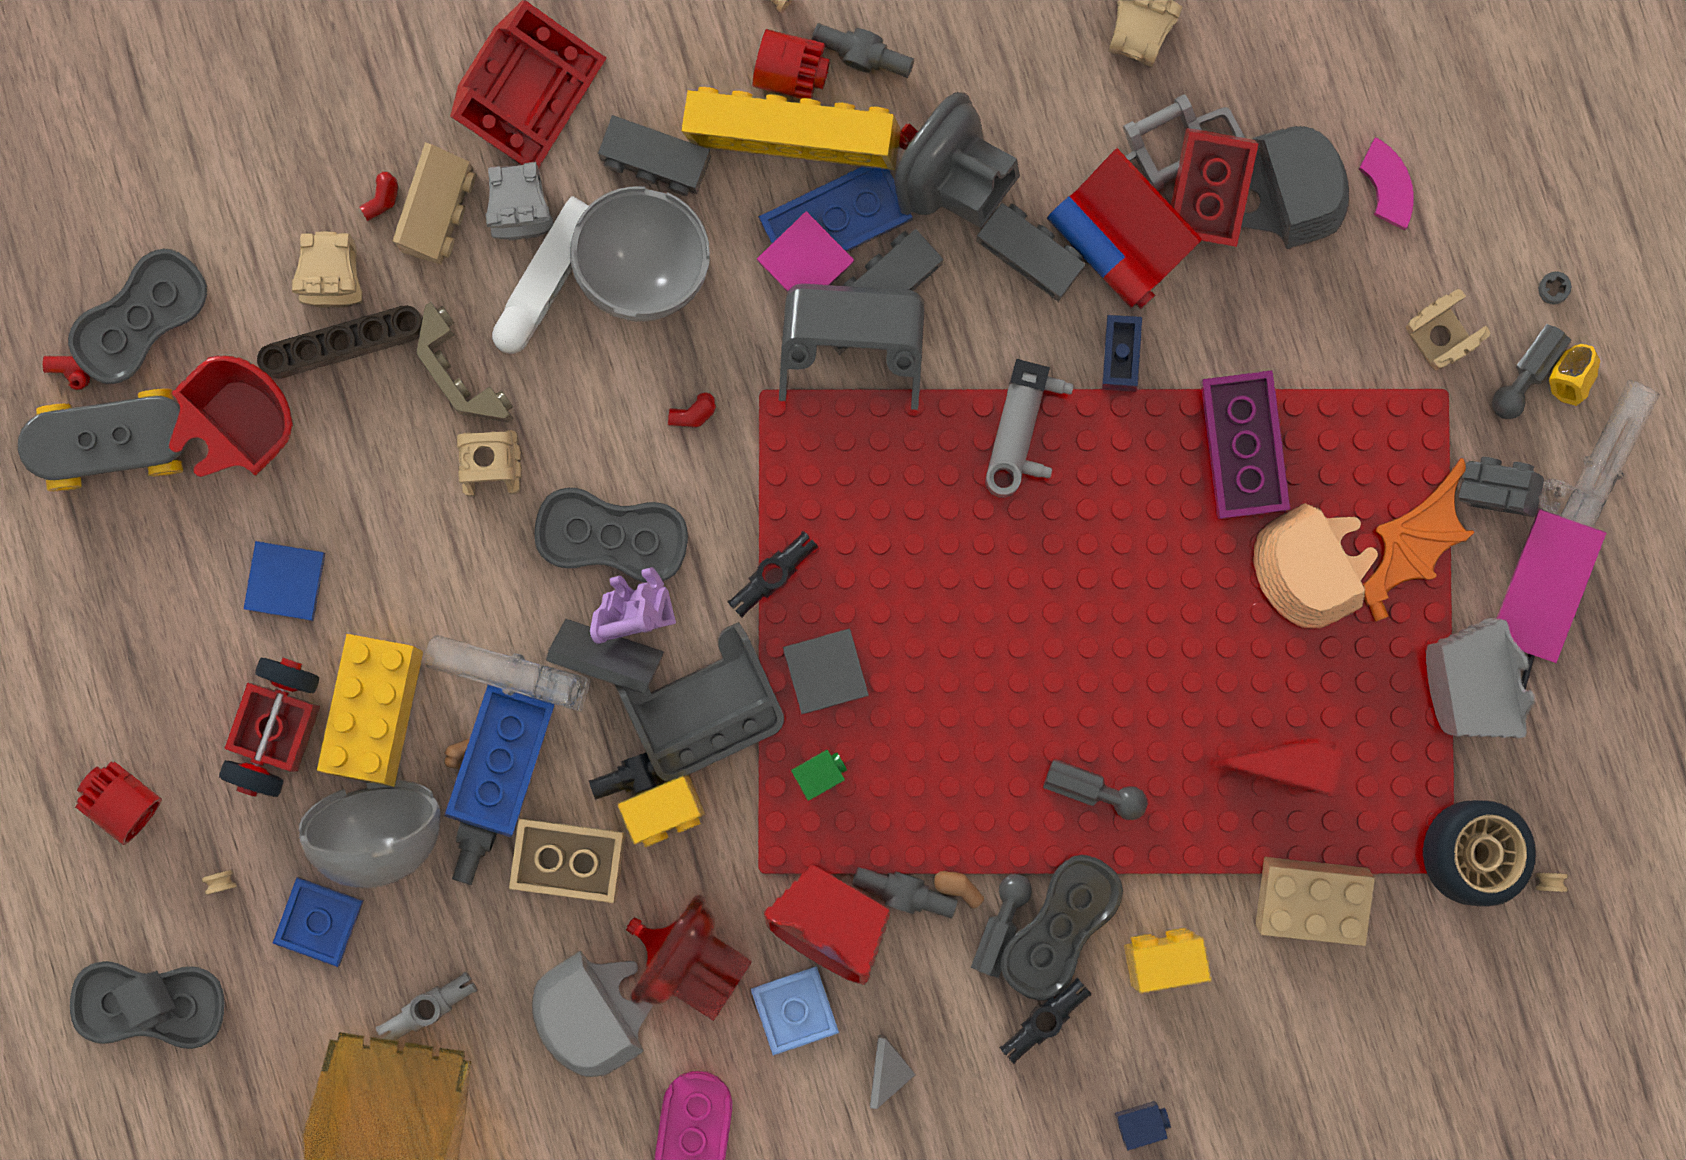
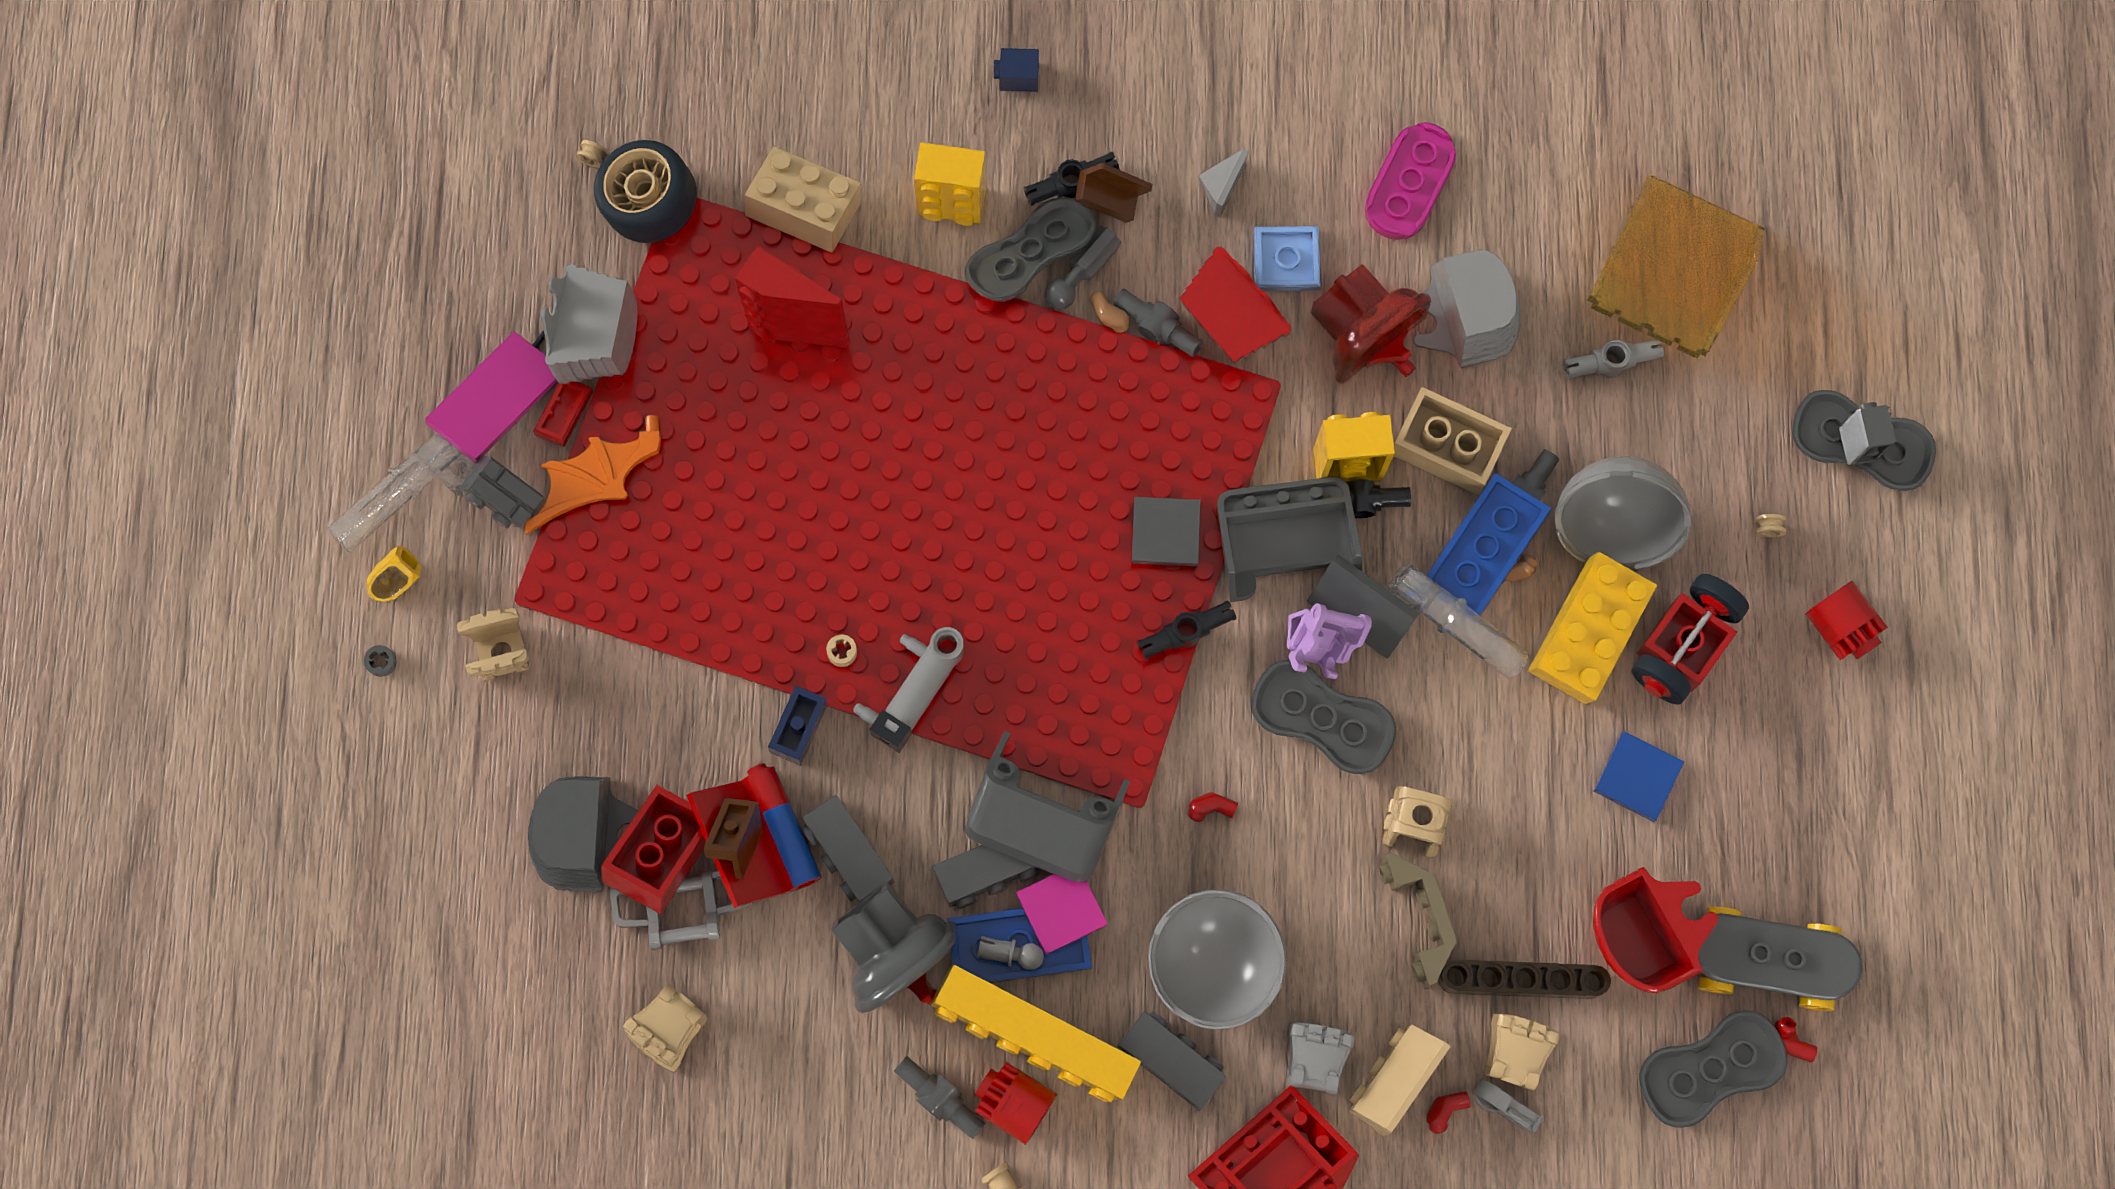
camera: 170 degrees left, 10 degrees down
(318, 922) = (1694, 463): blue tile -> none
(324, 217) = (1506, 1106): none -> light grey piece
(539, 283) = (1315, 977): white piece -> none
(819, 774) = (1201, 442): green brick -> none
(822, 203) = (1028, 956): none -> light grey pin
(1000, 1013) = (1110, 191): none -> reddish brown panel
(1090, 788) = (964, 353): dark grey piece -> none
(1117, 444) = (832, 647): none -> tan bush
(1142, 217) = (735, 834): none -> reddish brown panel
(1245, 444) = (716, 602): magenta brick -> none
(1307, 570) = (701, 480): light nougat piece -> none
(1391, 183) = (490, 806): dark pink tile -> none
(1473, 594) = (562, 412): none -> red plate
(1532, 369) = (429, 593): dark grey piece -> none

